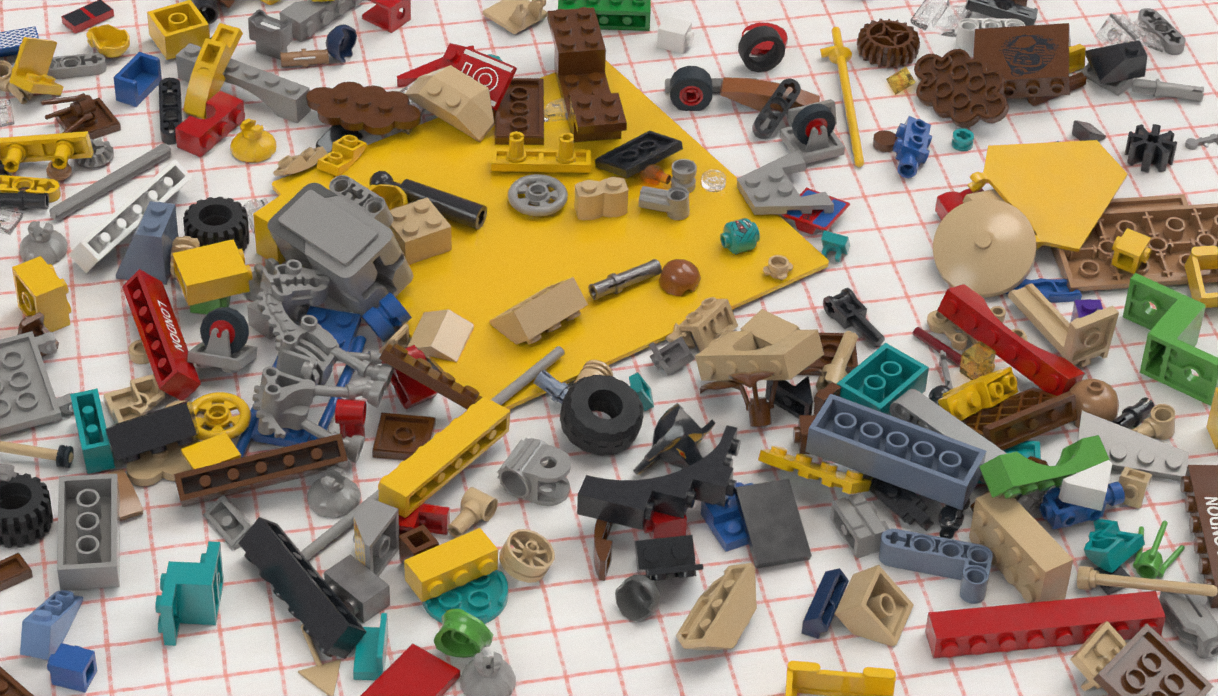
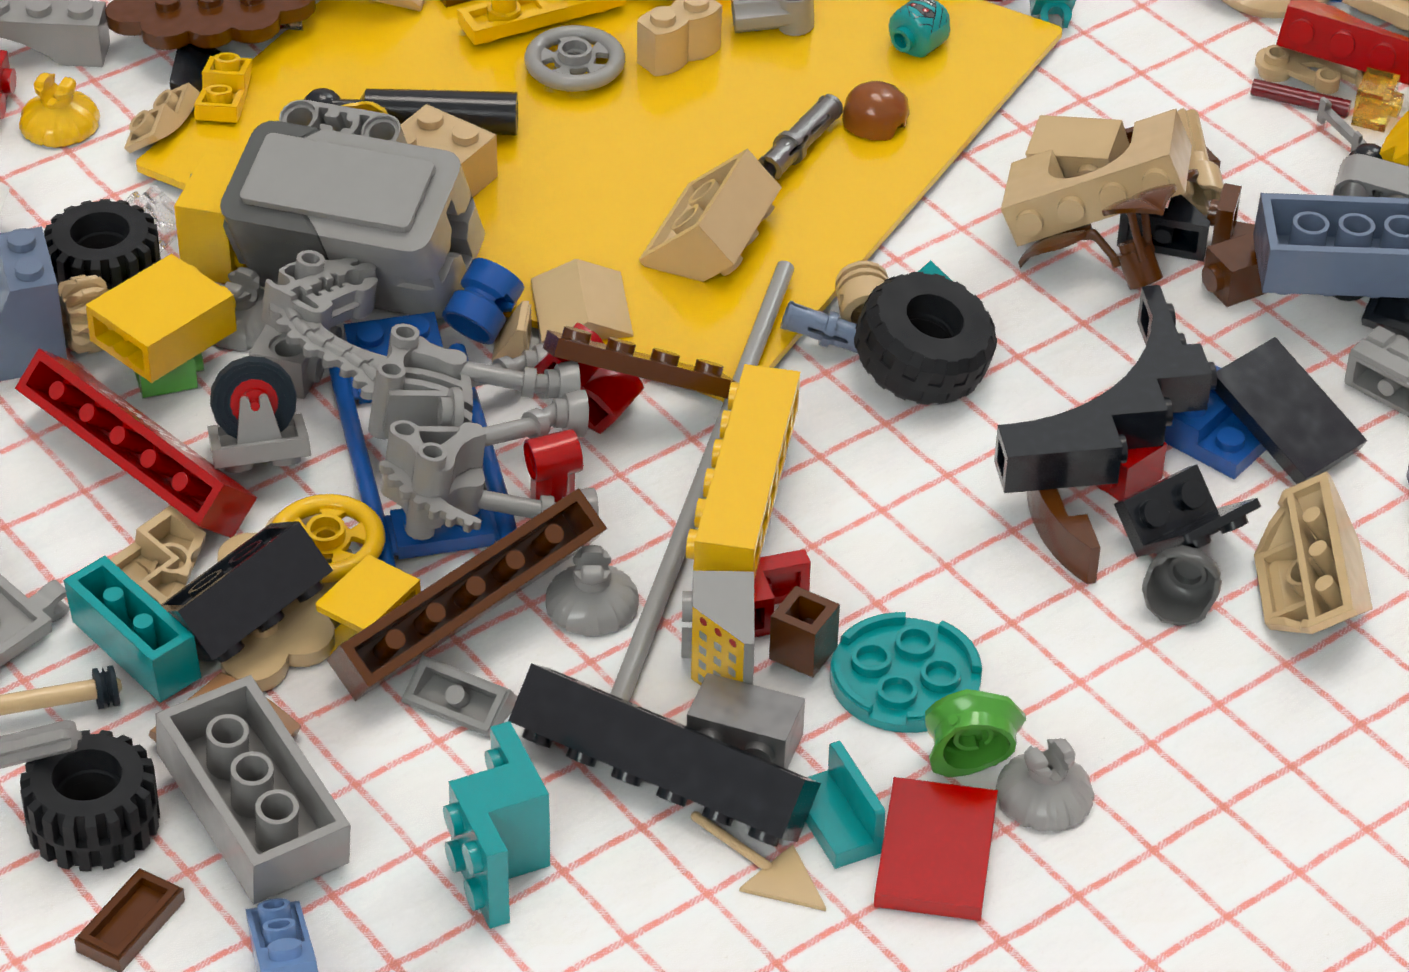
camera: 25 degrees left, 0 degrees up
(137, 353) = (108, 483): tan tile -> none
(401, 435) = (634, 474): reddish brown tile -> none
(451, 564) = (873, 635): yellow brick -> none
(474, 507) = (830, 541): tan pin -> none
(525, 472) = (876, 458): light grey piece -> none
(528, 549) = (970, 582): tan wheel -> none
(672, 356) = (948, 225): flat silver bracket -> none
(675, 440) = (1059, 341): black piece -> none
(686, 335) = (937, 197): tan piece -> none
(710, 321) = (970, 158): tan bracket -> none
(778, 267) = (1004, 54): tan plate -> none
(851, 482) = (1302, 312): yellow wing -> none
(852, 312) = (1151, 87): black connector -> none
(883, 379) = (1283, 156): teal brick -> none

